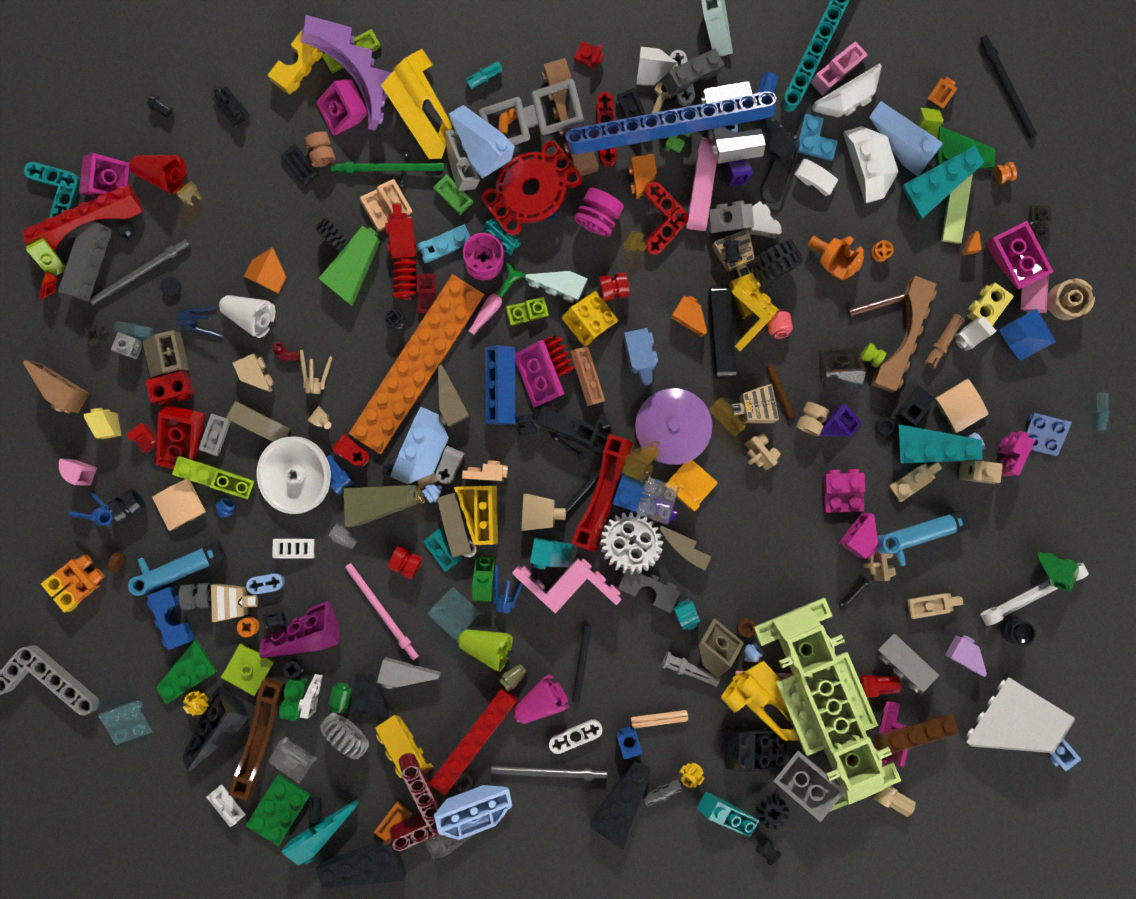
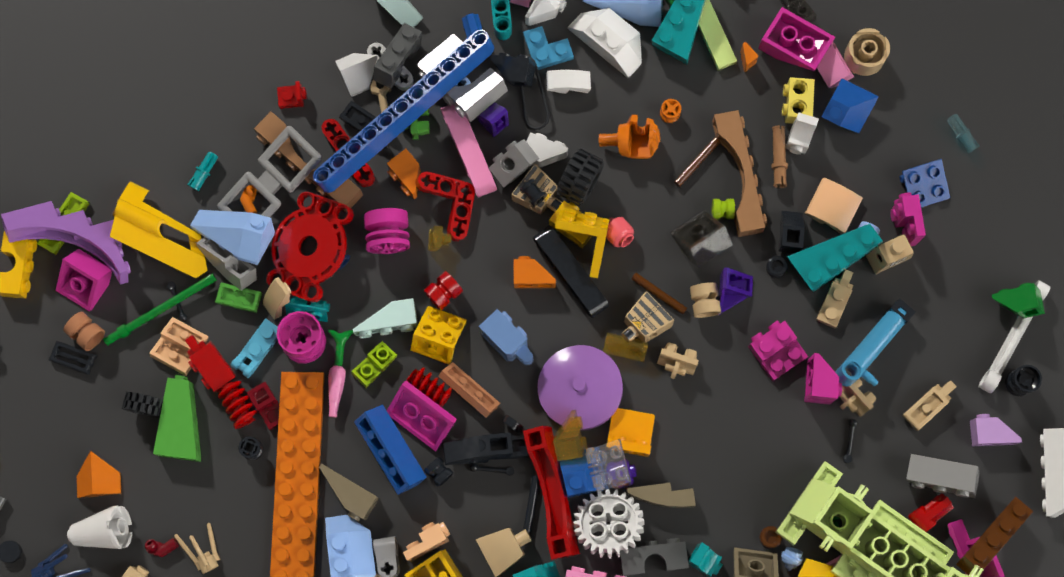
camera: 25 degrees left, 10 degrees down
(482, 213) = (276, 297): none -> tan slope

